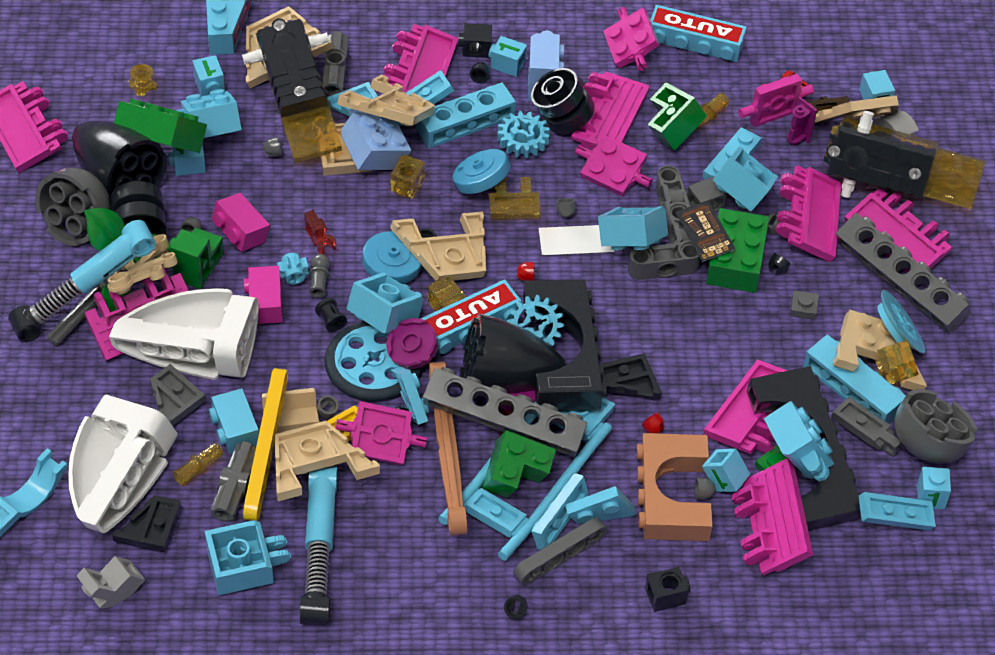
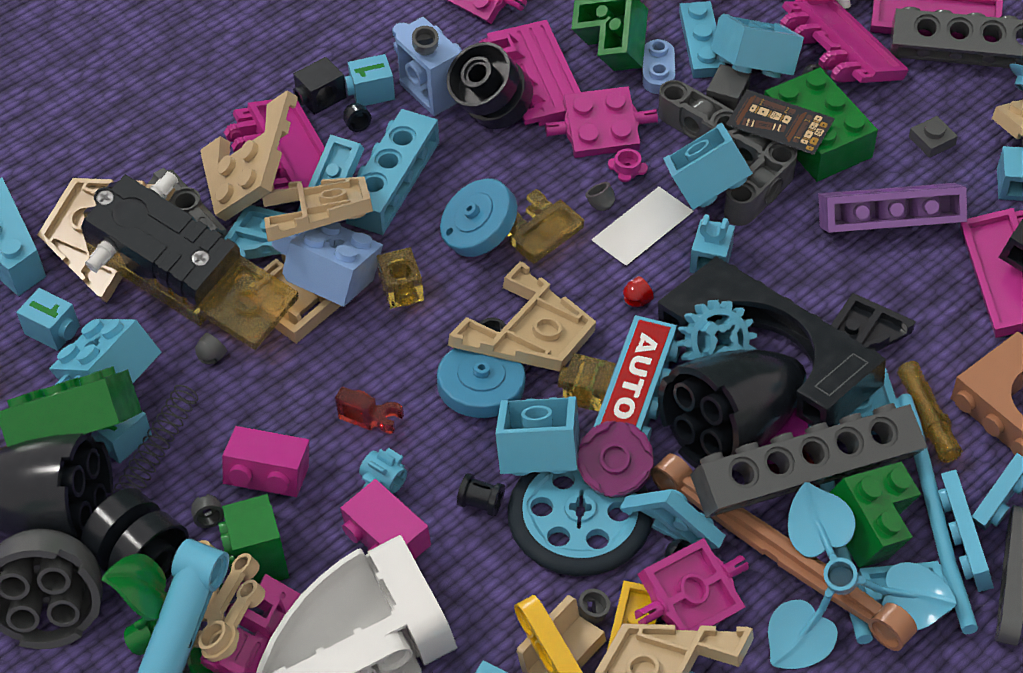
camera: 35 degrees left, 0 degrees up
(239, 167) = (160, 437): none -> dark grey piece
(319, 274) = (418, 458): dark grey pin -> none
(382, 56) = (248, 173): none -> tan wing
(417, 495) = (819, 524): none -> medium azure plant
(523, 134) = (475, 150): medium azure gear -> none
(540, 45) = (425, 40): none -> dark grey hinge
(597, 273) = (711, 241): none -> medium azure brick
(602, 200) = (627, 164): none -> dark pink plate
(603, 464) = (934, 422): none -> clear yellow pin
(654, 423) = (939, 360): red hinge -> none
(691, 154) = (657, 65): none -> light blue plate
(721, 323) = (892, 207): none -> medium lavender brick
(778, 262) = (870, 109): black hinge -> none

